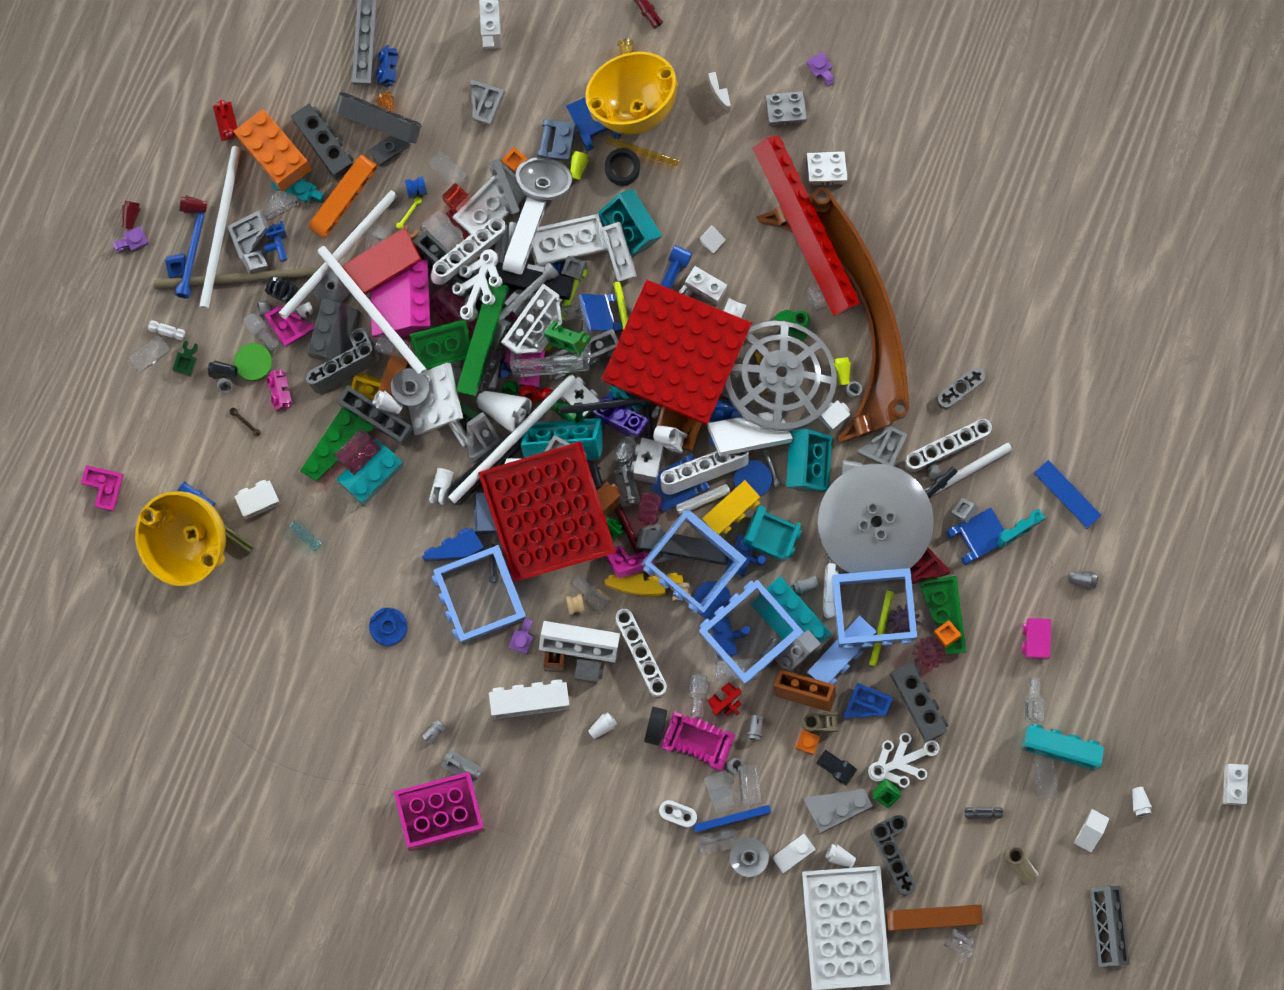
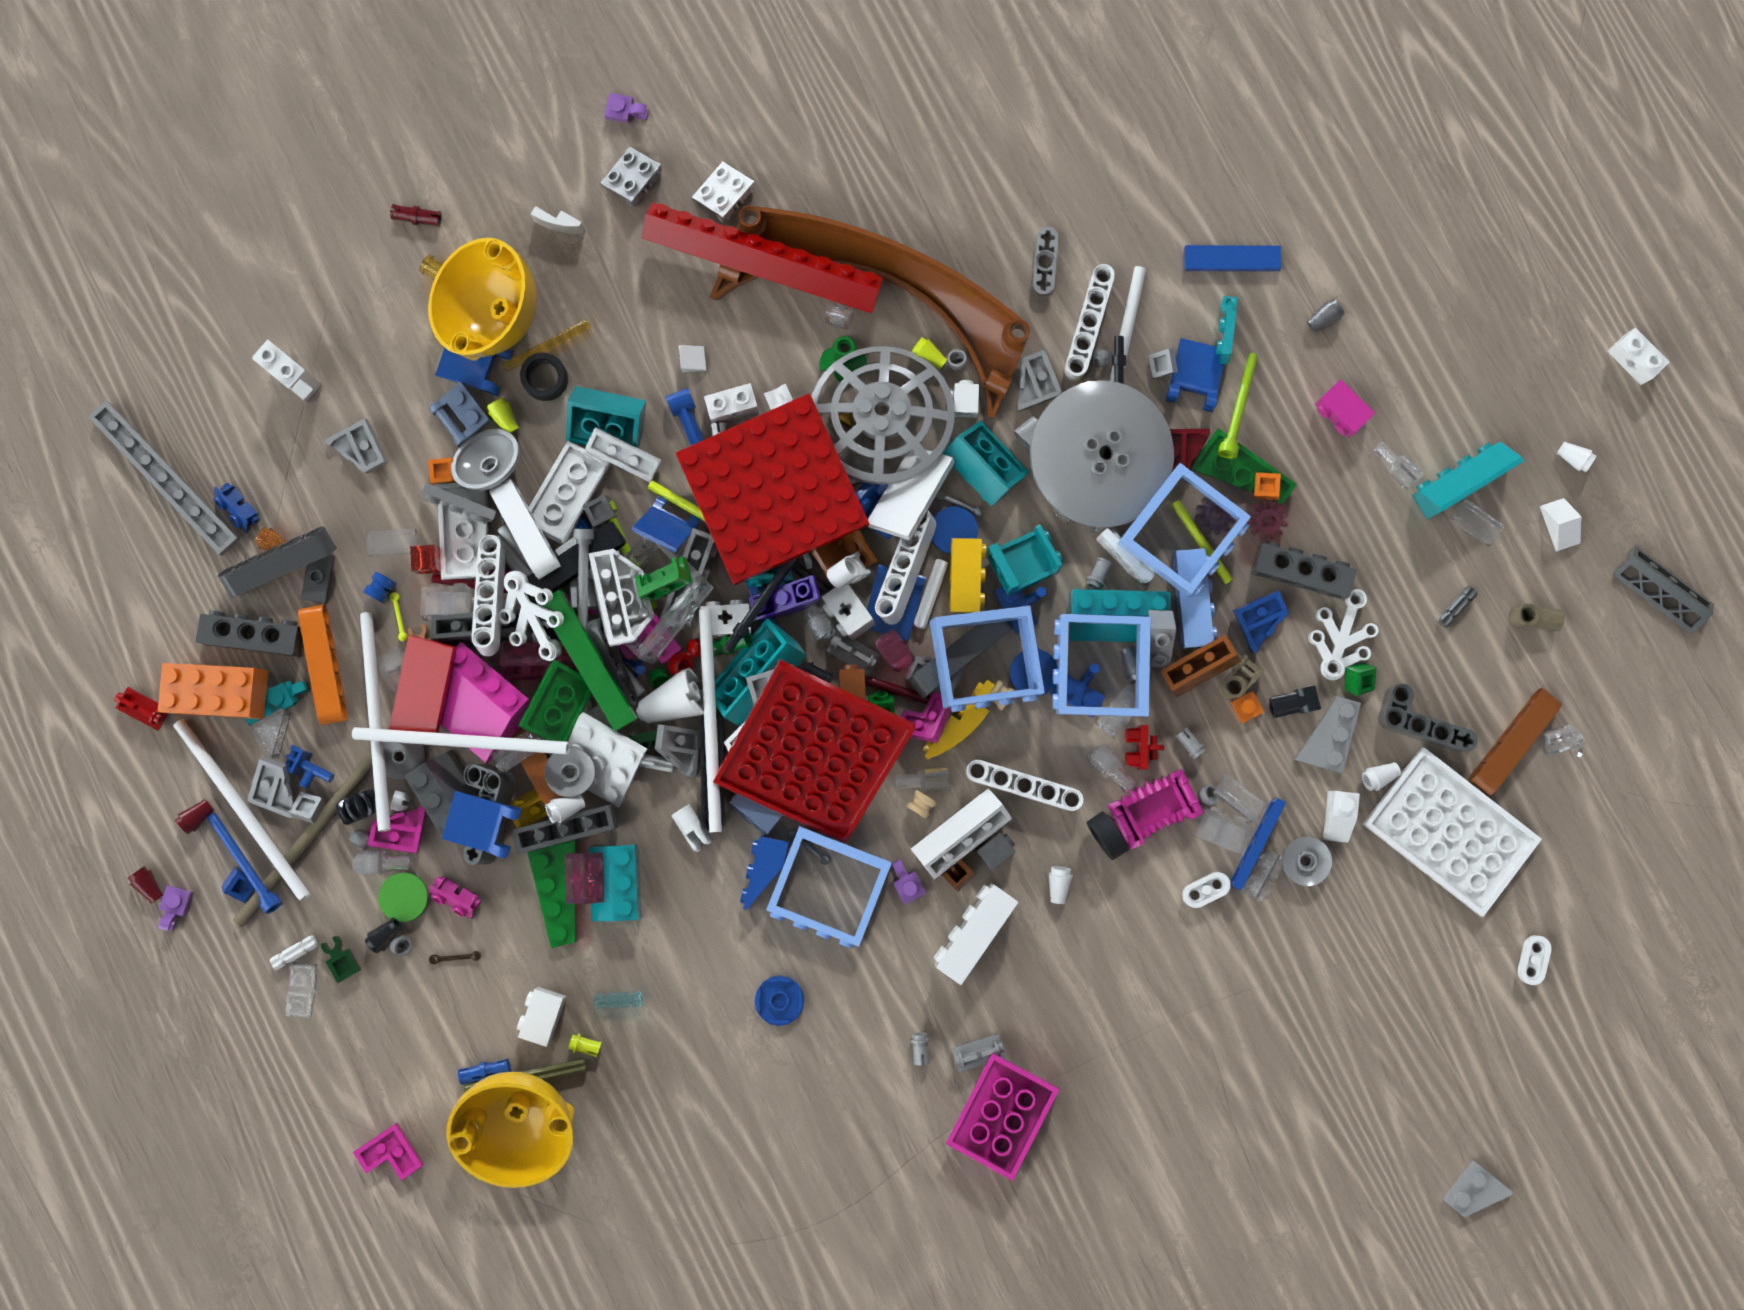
camera: 50 degrees left, 5 degrees up
(262, 539) = (584, 1045): none -> neon yellow pin
(334, 362) = (477, 823): none -> blue flag
(949, 591) = (1229, 447): none -> lime piece

